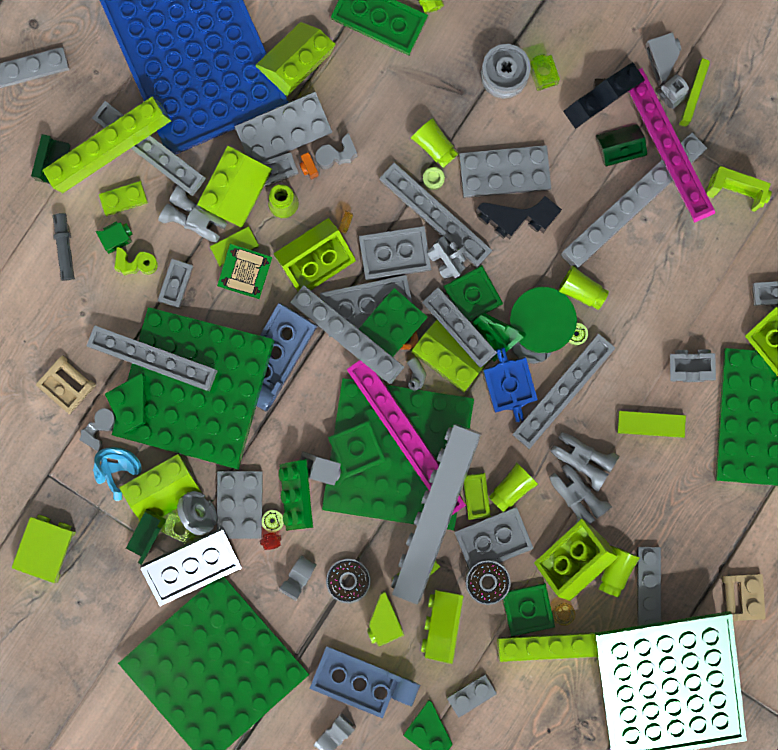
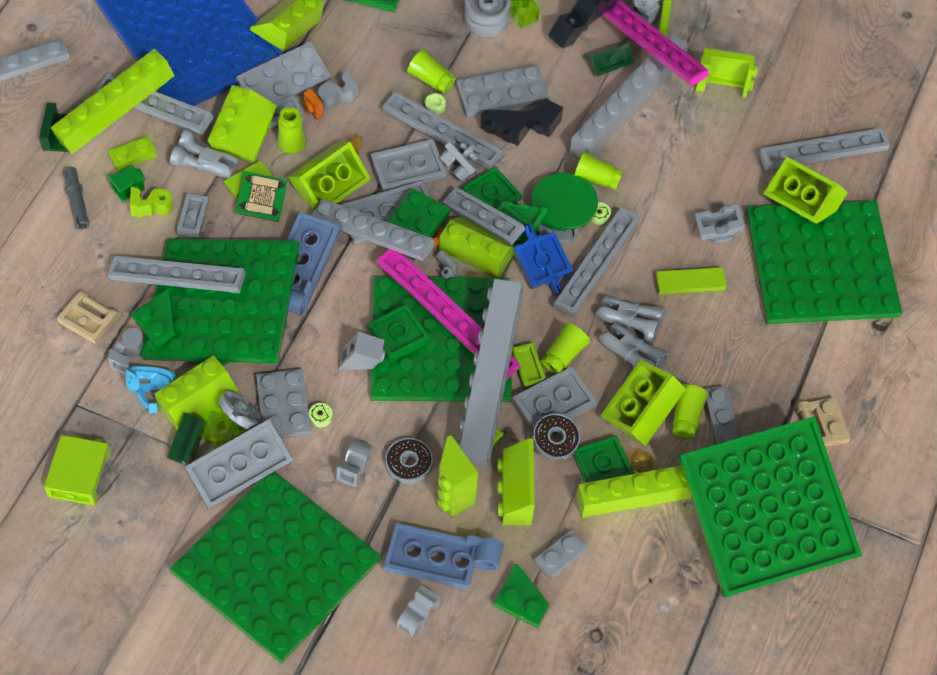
camera: 10 degrees left, 25 degrees down
(270, 541) = (321, 431): clear red plate -> none
(295, 495) = (342, 380): green plate -> none

